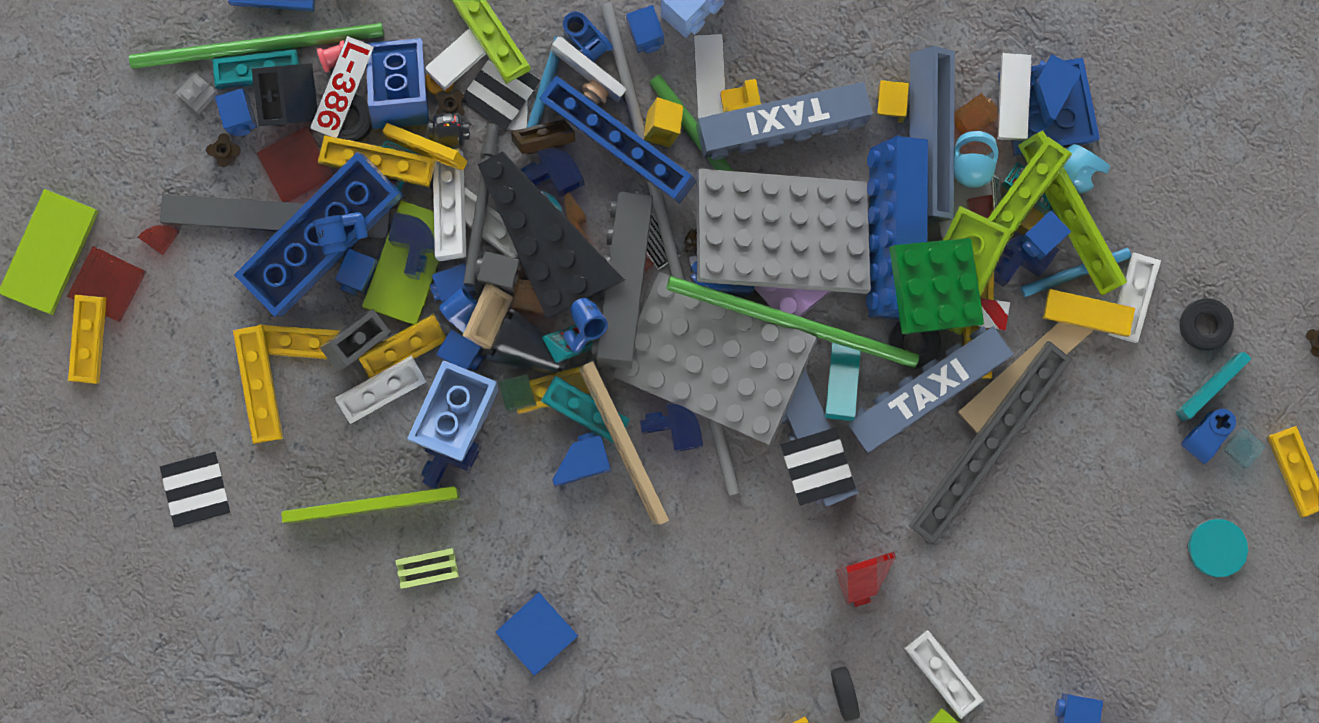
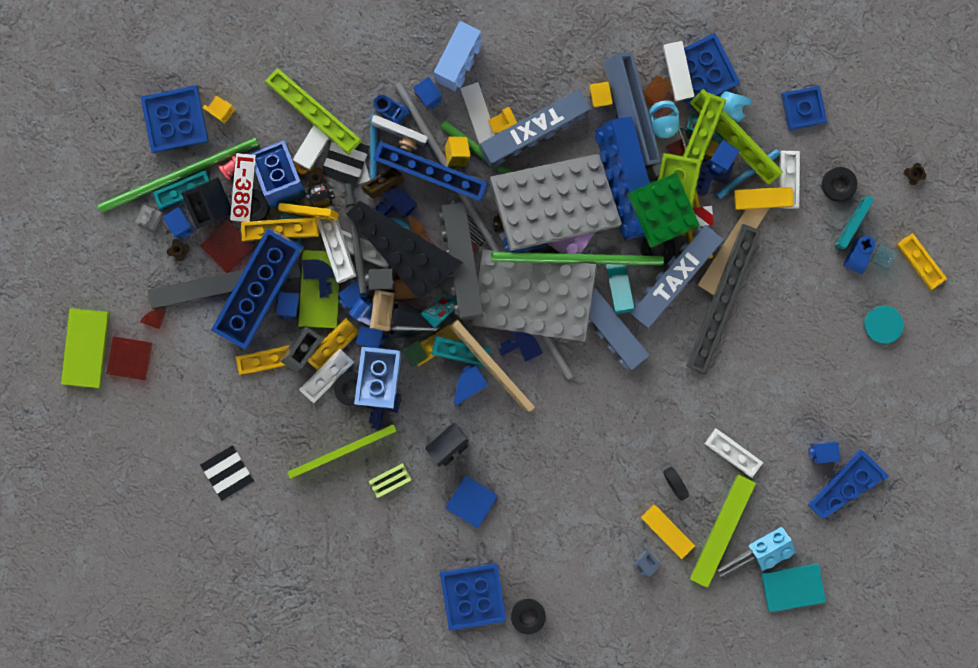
camera: 20 degrees left, 5 degrees up
(87, 339) = (128, 397): yellow tile -> none
(258, 384) = (247, 395): yellow tile -> none
(332, 233) = (266, 285): blue piece -> none
(394, 411) = (339, 388): none -> black tyre
(525, 539) = (447, 445): none -> black slope
(589, 322) = (448, 295): blue piece -> none
(817, 466) = (619, 346): black sticker -> none
(864, 578) = (668, 407): red wedge -> none
(1053, 86) = (702, 57): blue slope -> none
(1183, 201) = (804, 108): none -> blue tile

